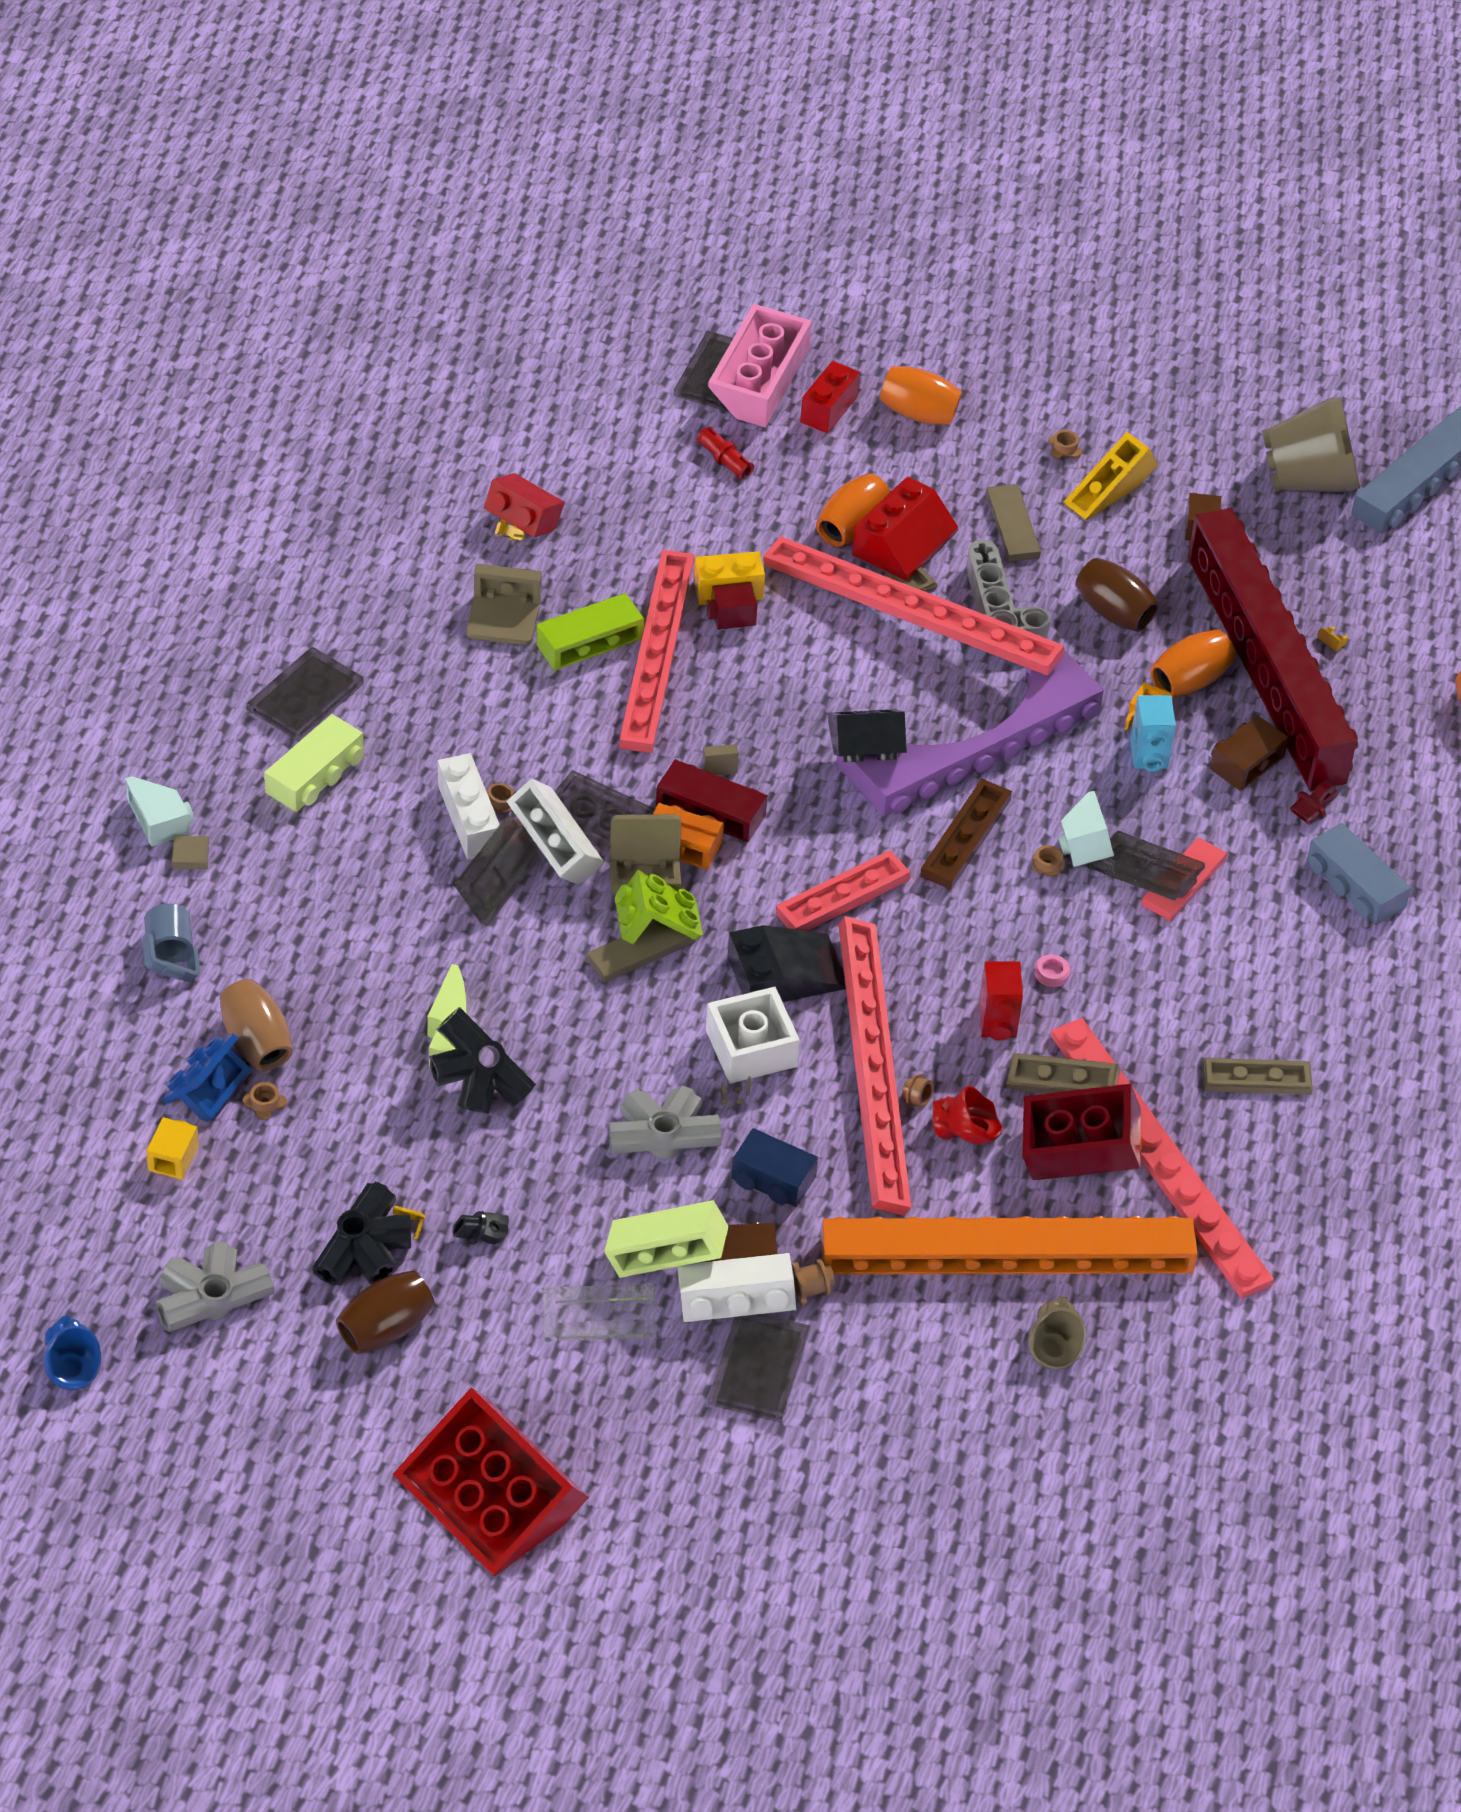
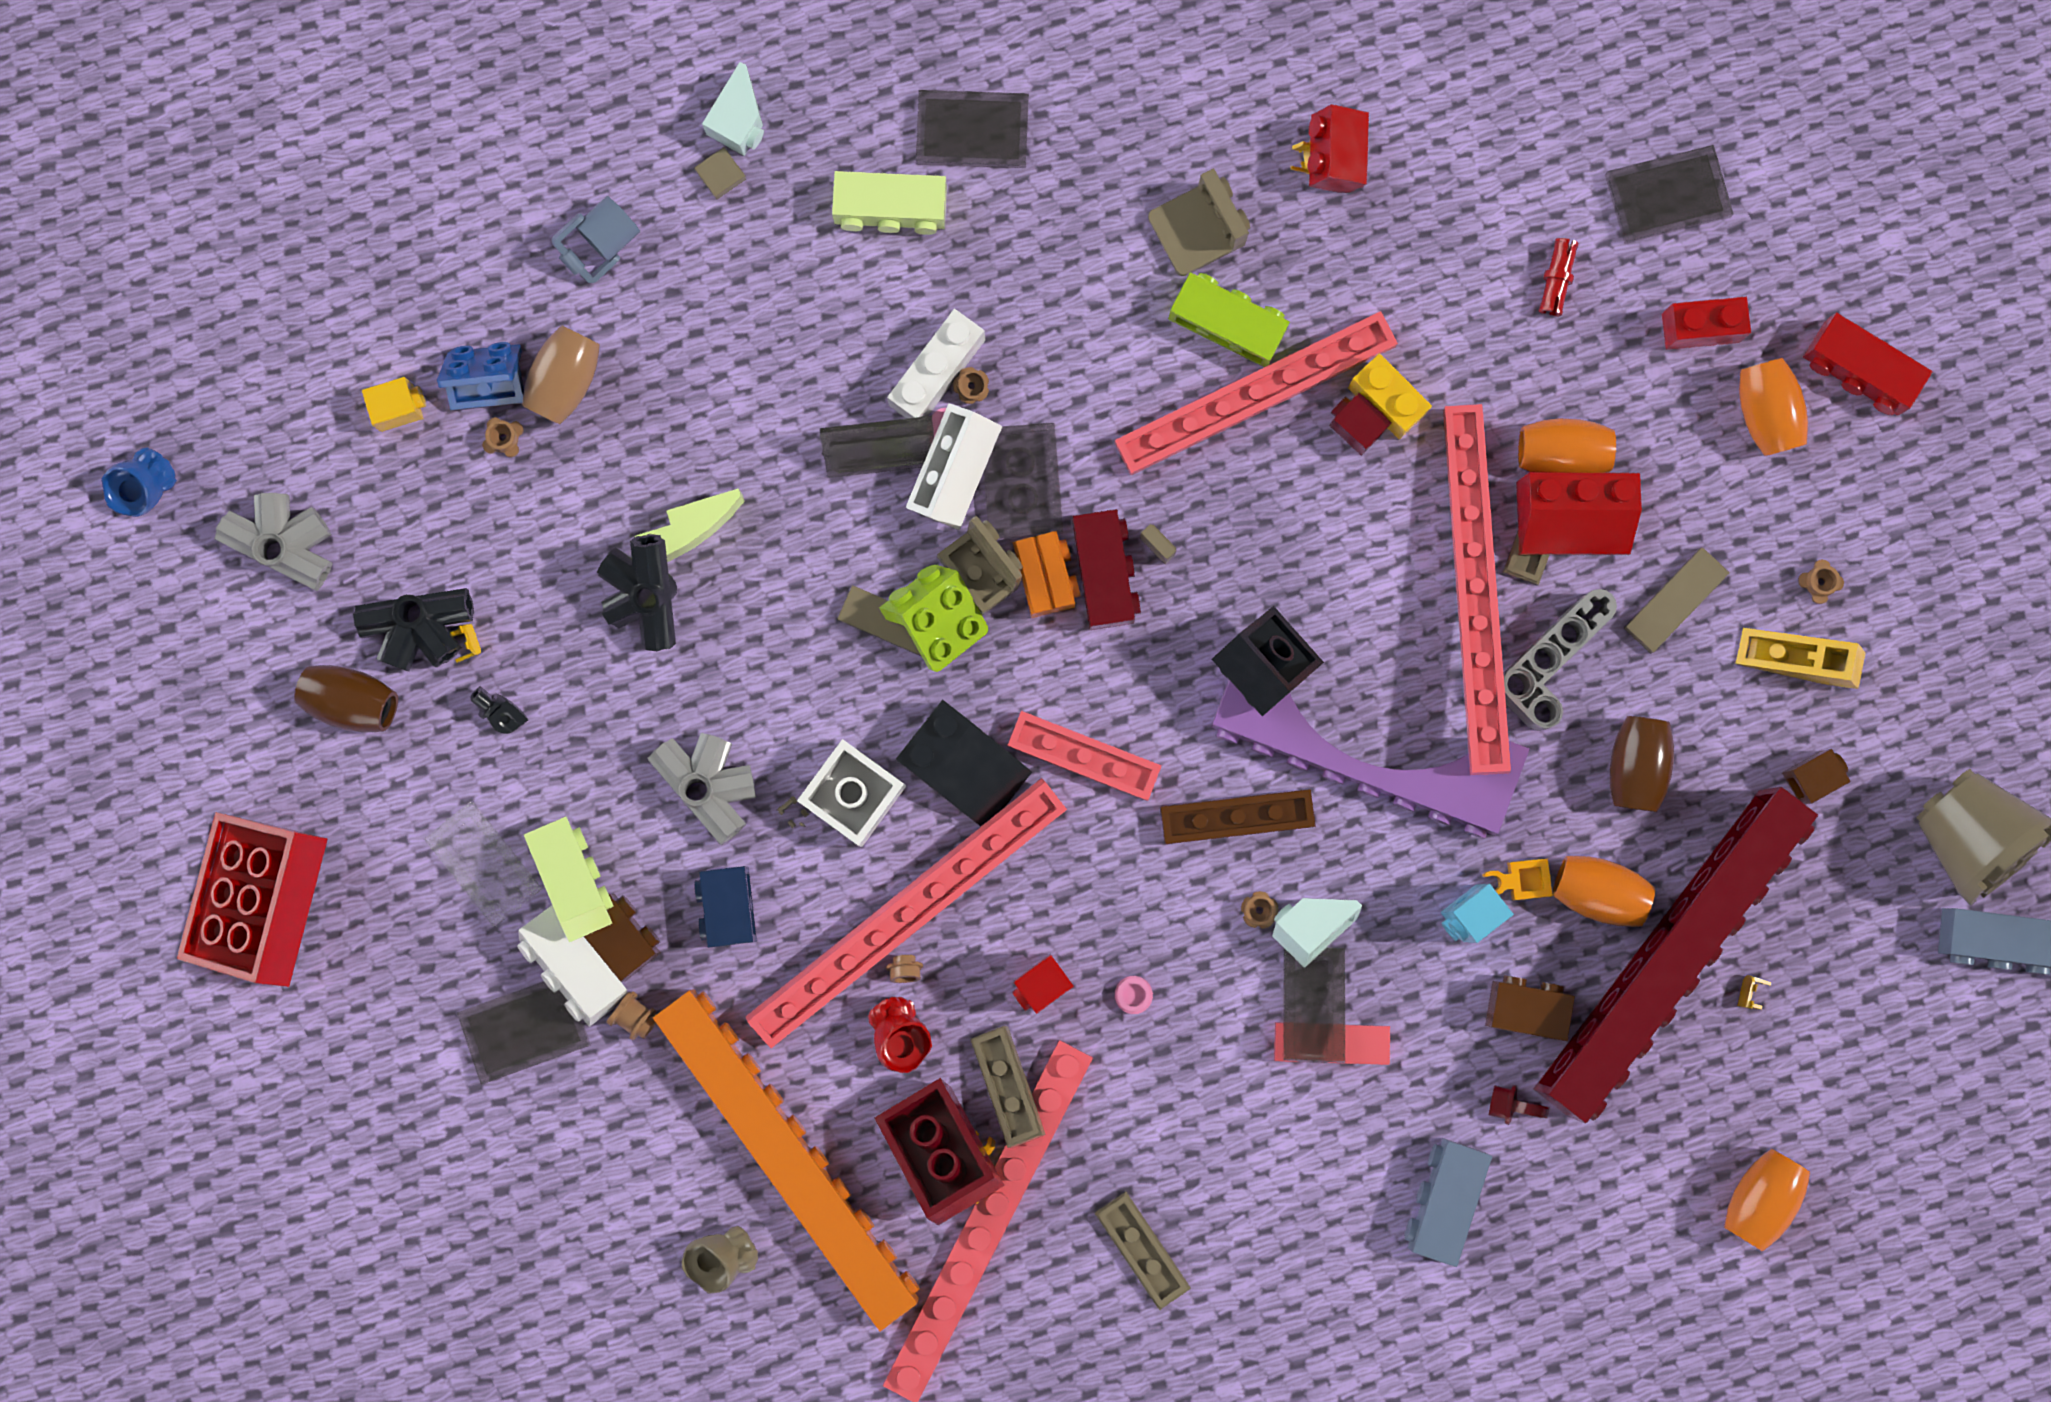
camera: 60 degrees right, 35 degrees up
(761, 363) = (1696, 229): bright pink slope -> none
(933, 339) = (1867, 365): none -> red brick

